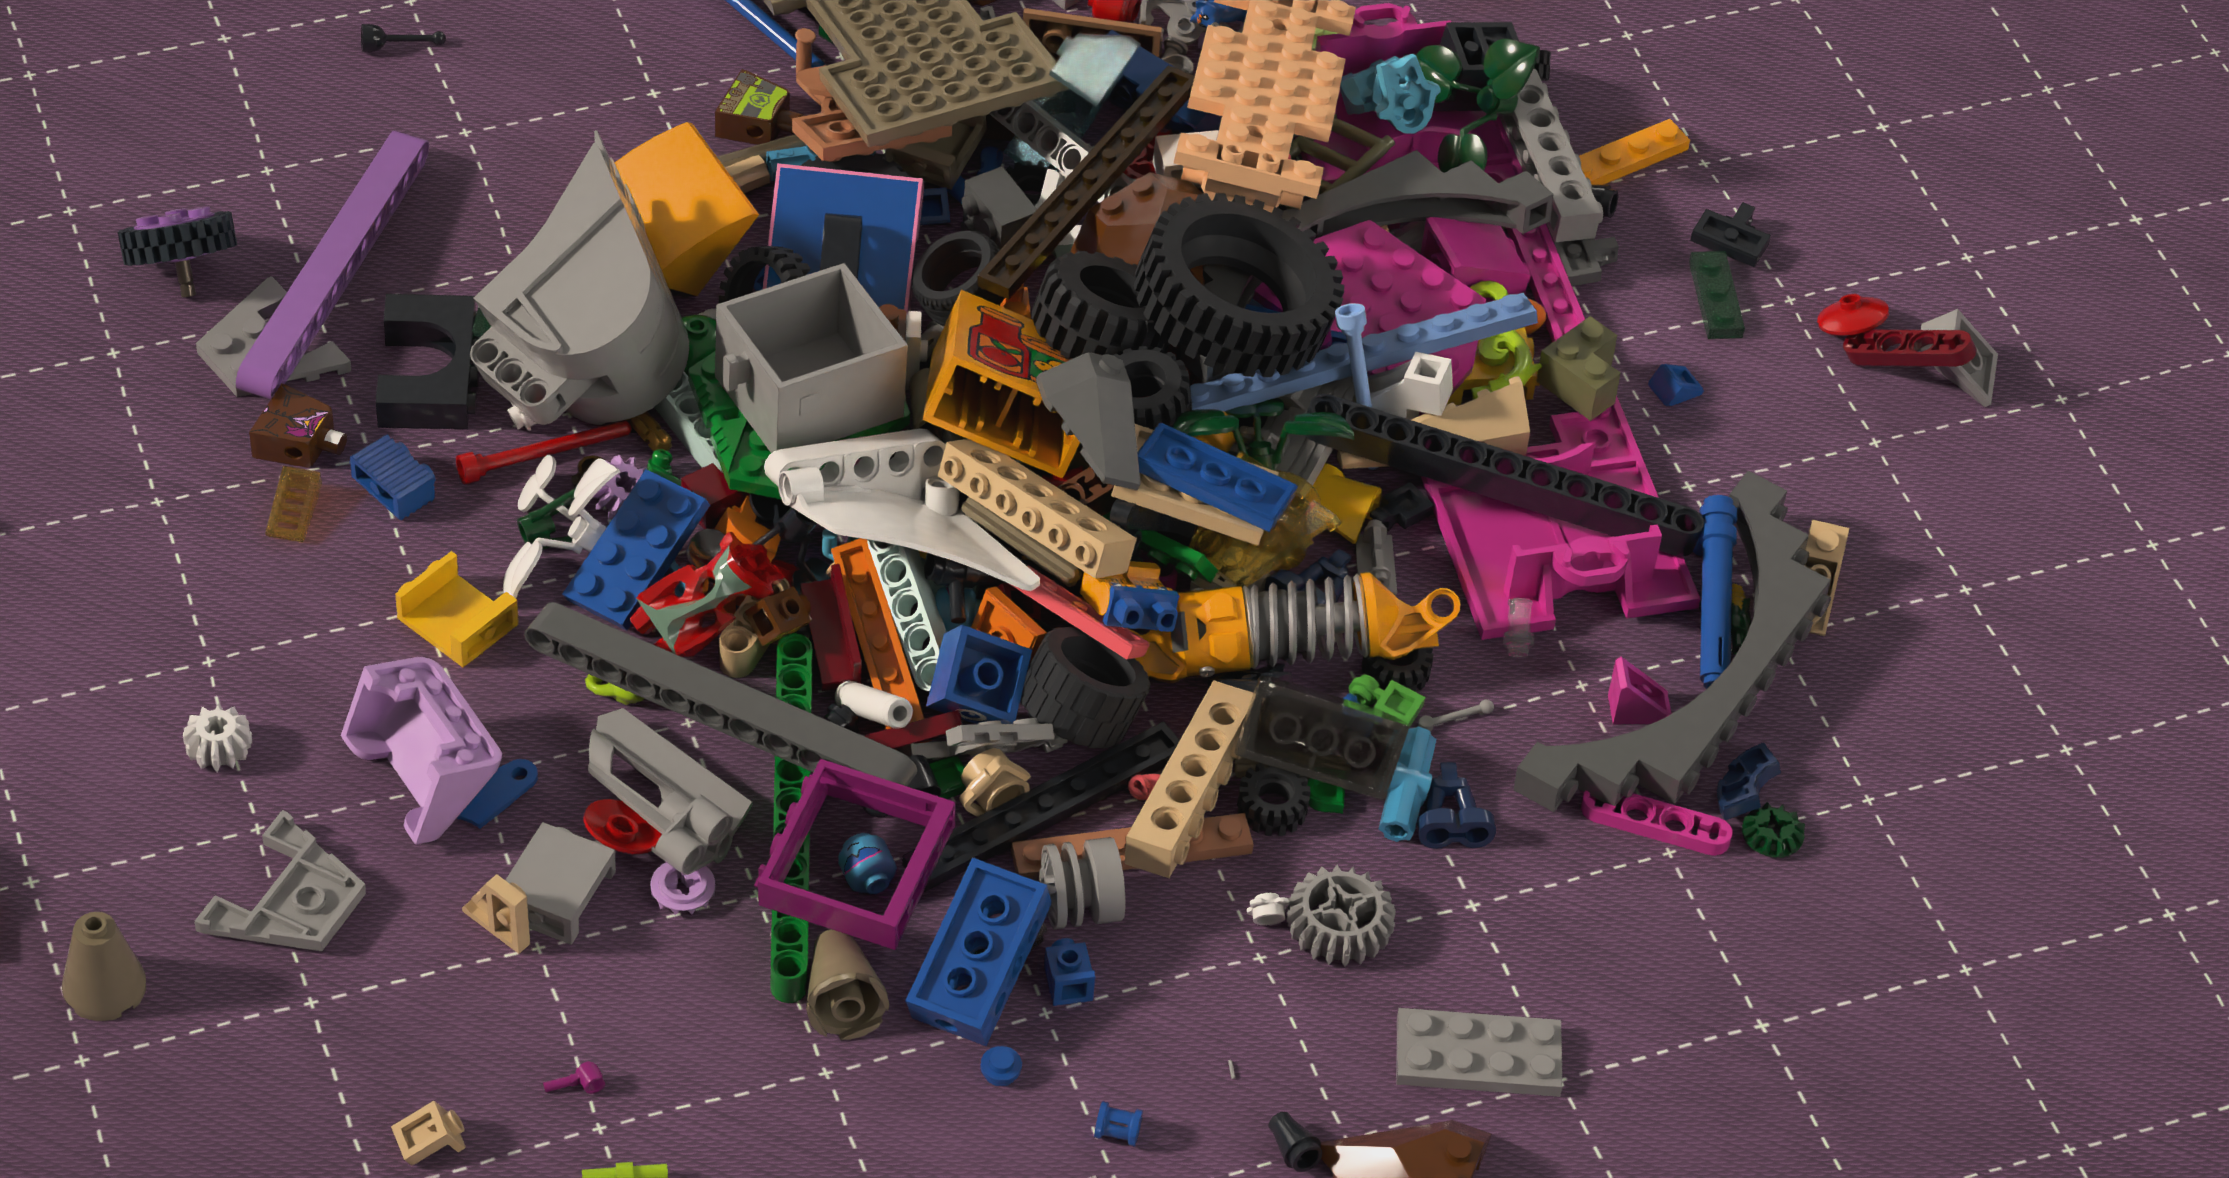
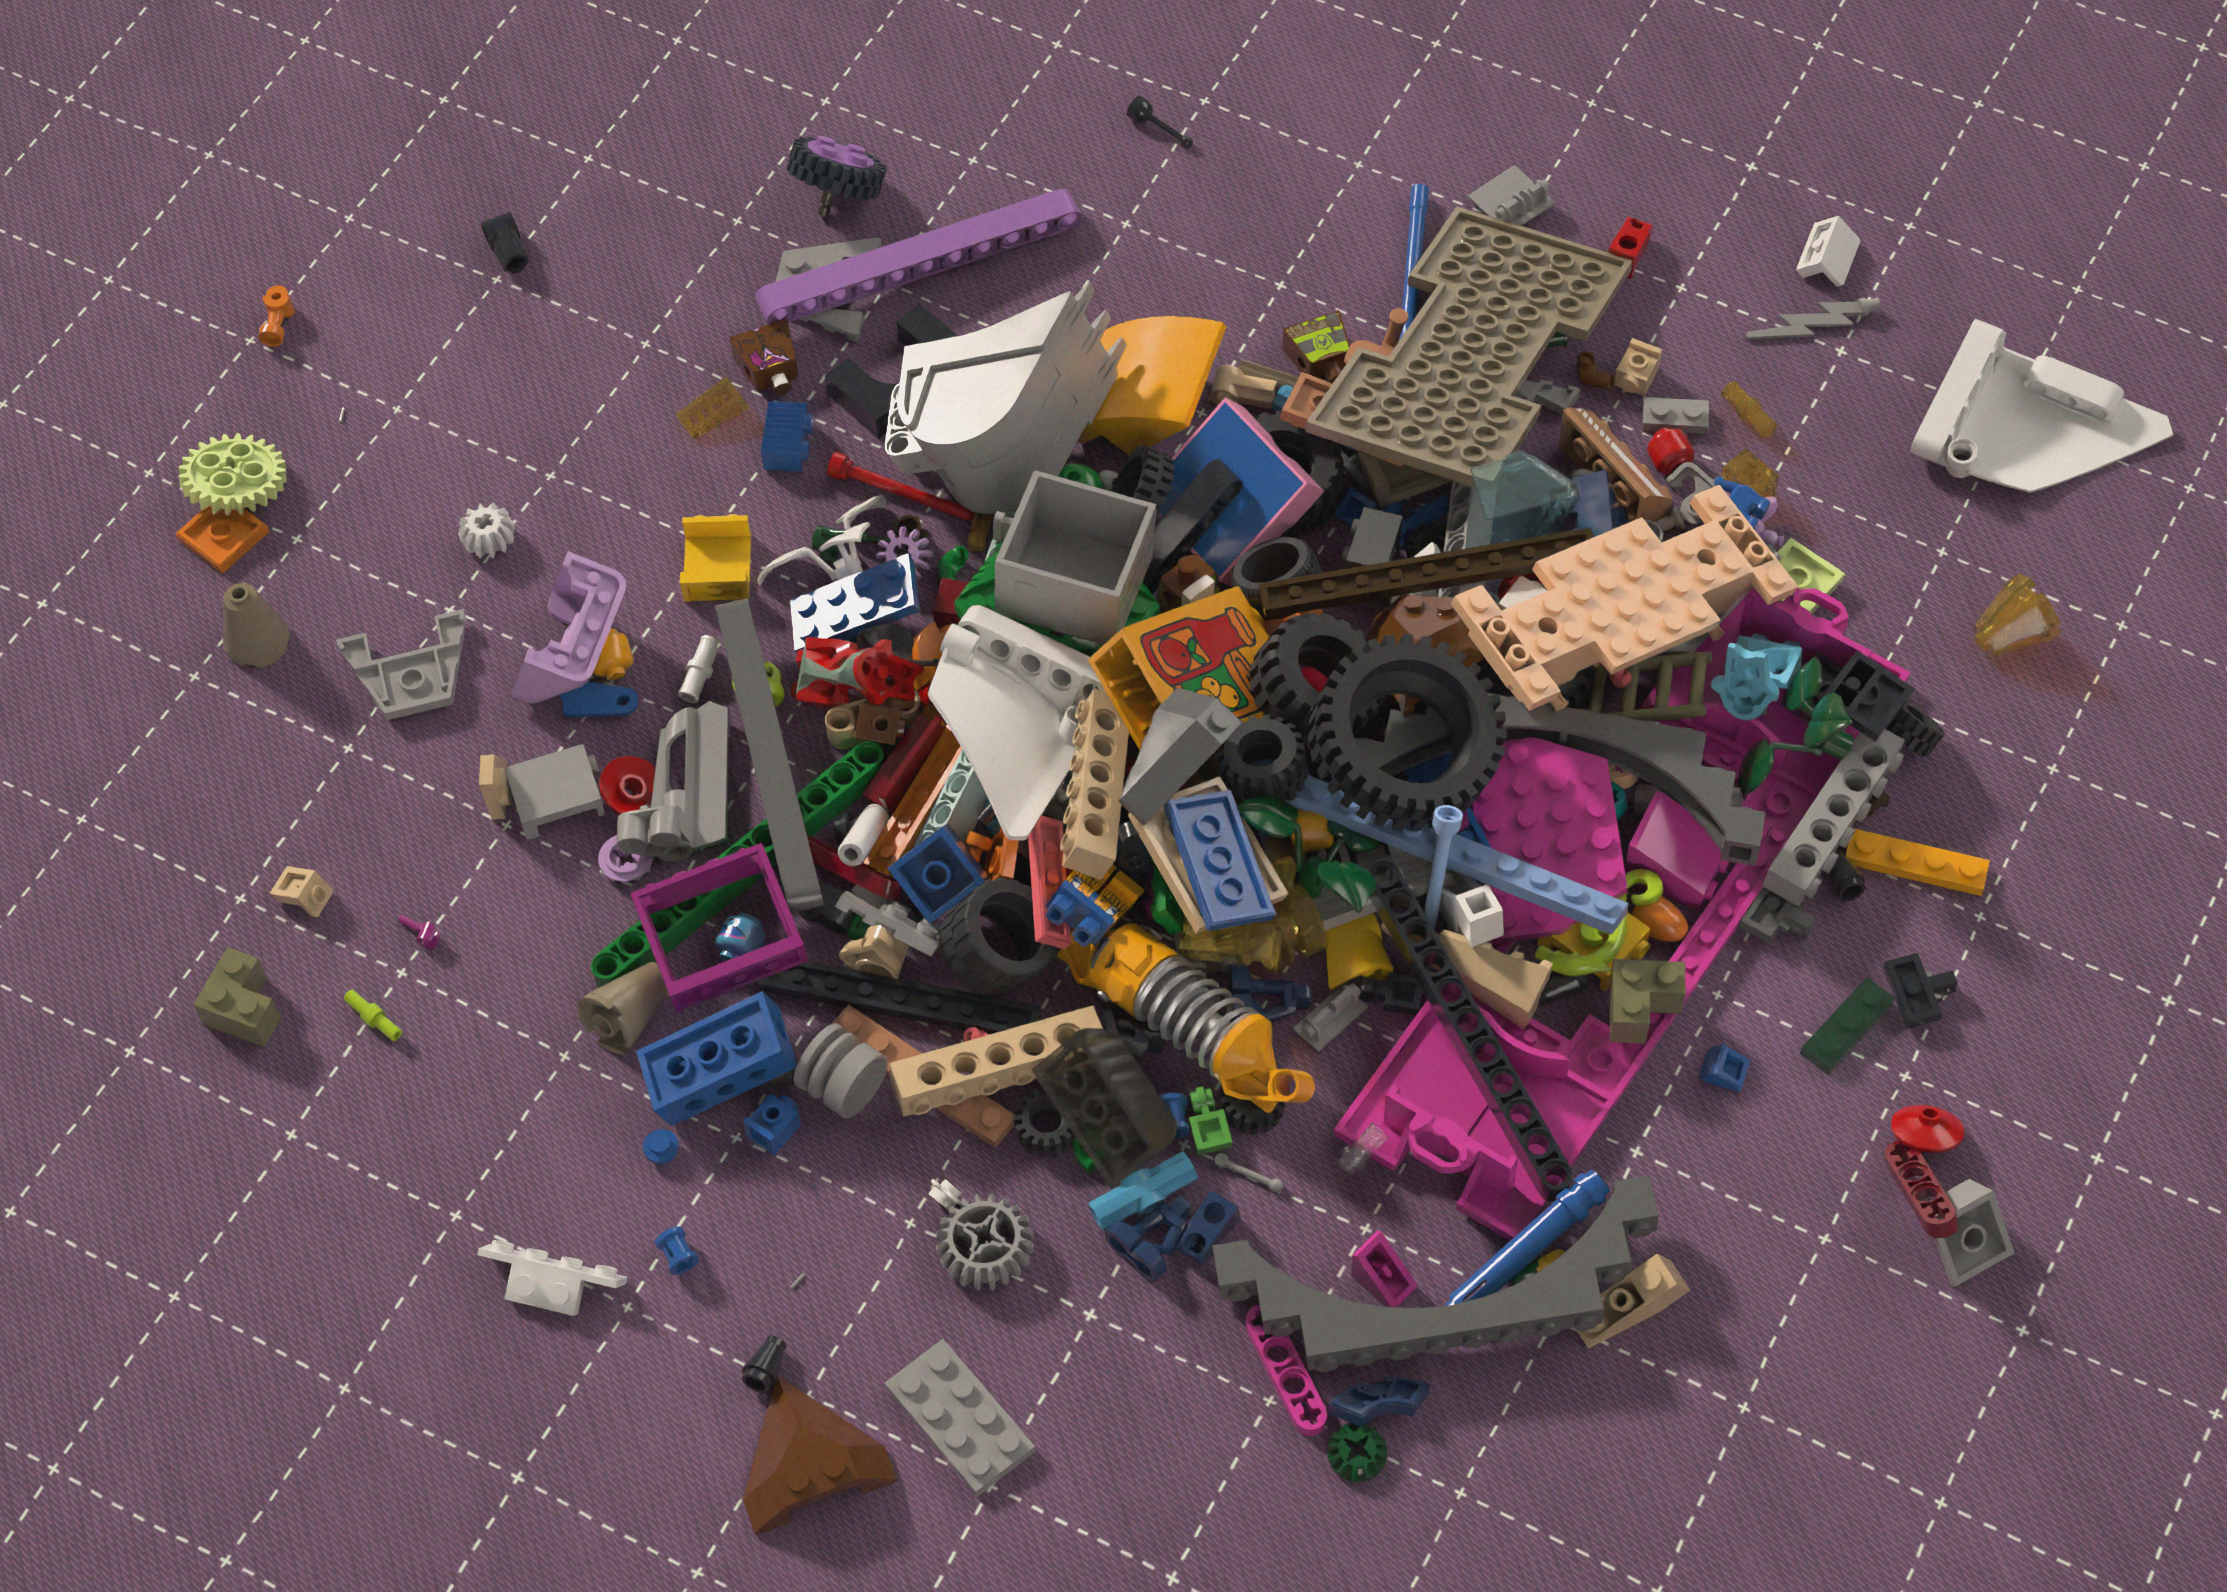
camera: 55 degrees right, 10 degrees up
(554, 701) = (699, 669): none -> white pin
(1485, 768) = (1208, 1228): none -> dark blue leg

